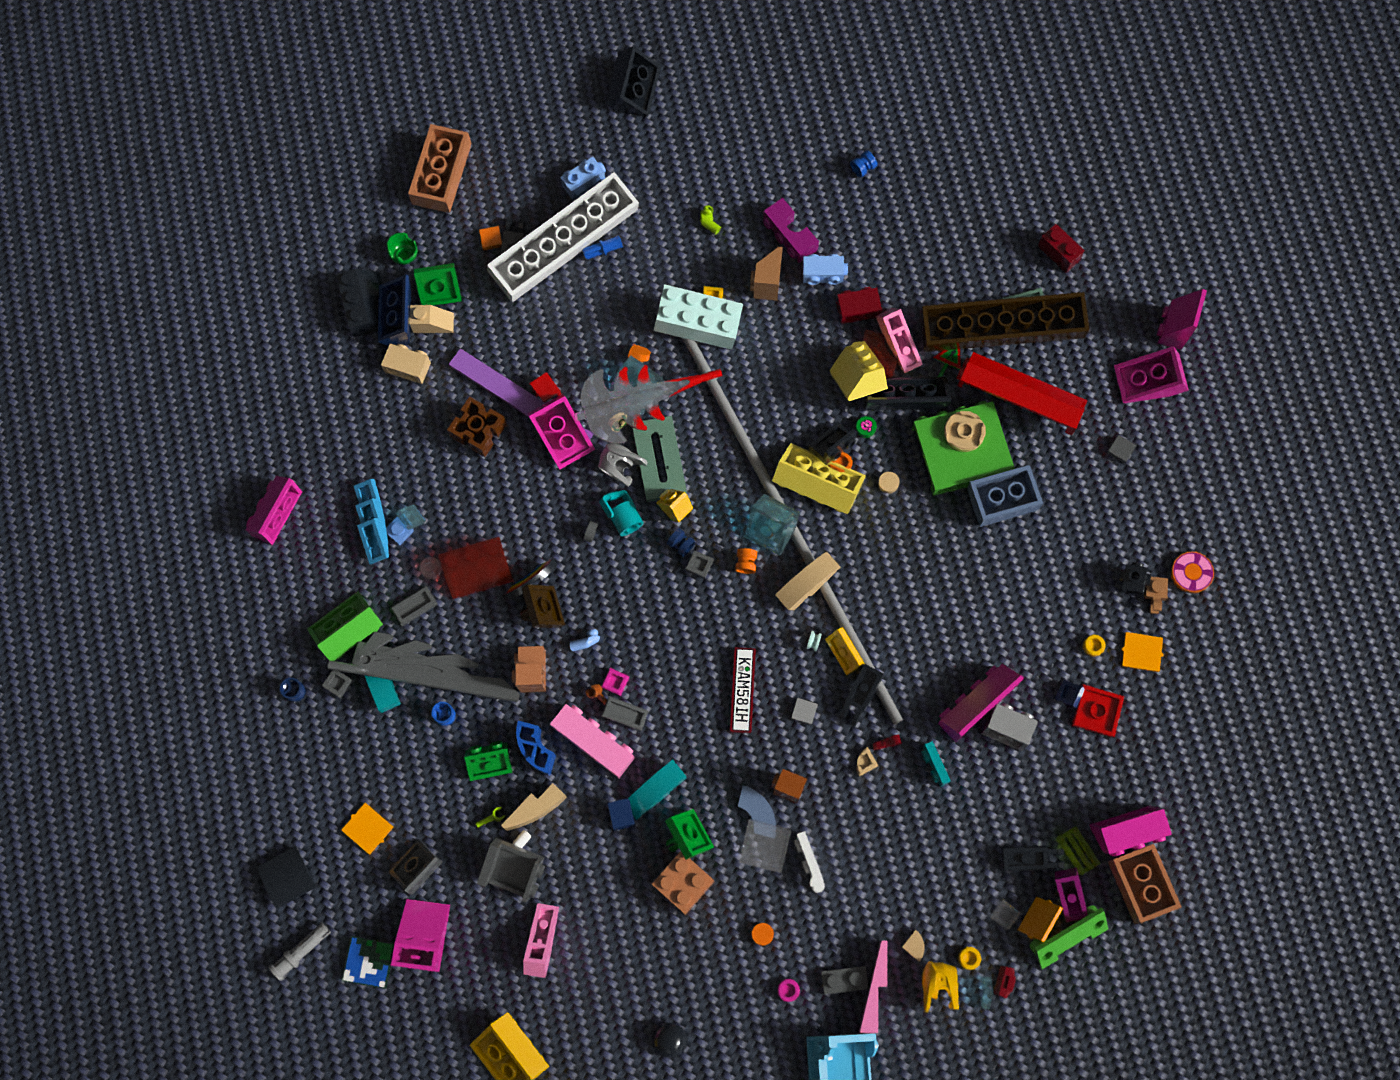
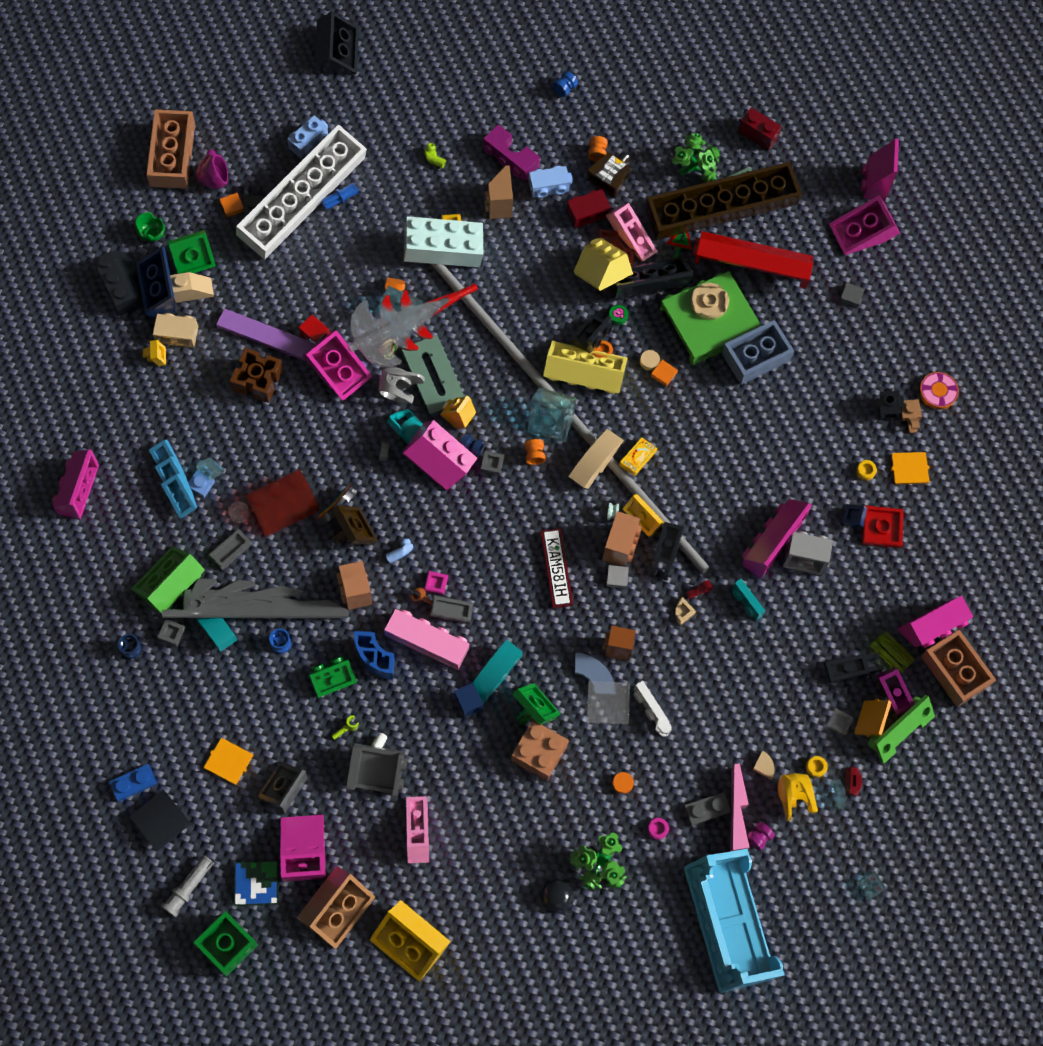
camera: 20 degrees left, 5 degrees down
(268, 832) = (133, 782): none -> blue plate
(323, 1020) = (226, 943): none -> green brick
(381, 384) = (155, 353): none -> yellow tile
(441, 1005) = (336, 907): none -> medium nougat slope
(477, 199) = (212, 171): none -> magenta piece
(534, 808) = (385, 710): tan slope -> none
(644, 547) = (439, 454): none -> dark pink slope
(706, 1011) = (588, 857): none -> bright green plant
(815, 673) = (622, 539): none -> nougat brick
(853, 586) = (638, 457): none -> yellow tile
(882, 241) = (597, 148): none -> orange wheel
(890, 270) = (610, 173): none -> dark brown torso
(893, 1021) = (760, 835): none -> magenta wheel
(901, 499) = (664, 373): none -> orange tile
(990, 276) = (686, 158): none -> bright green plant

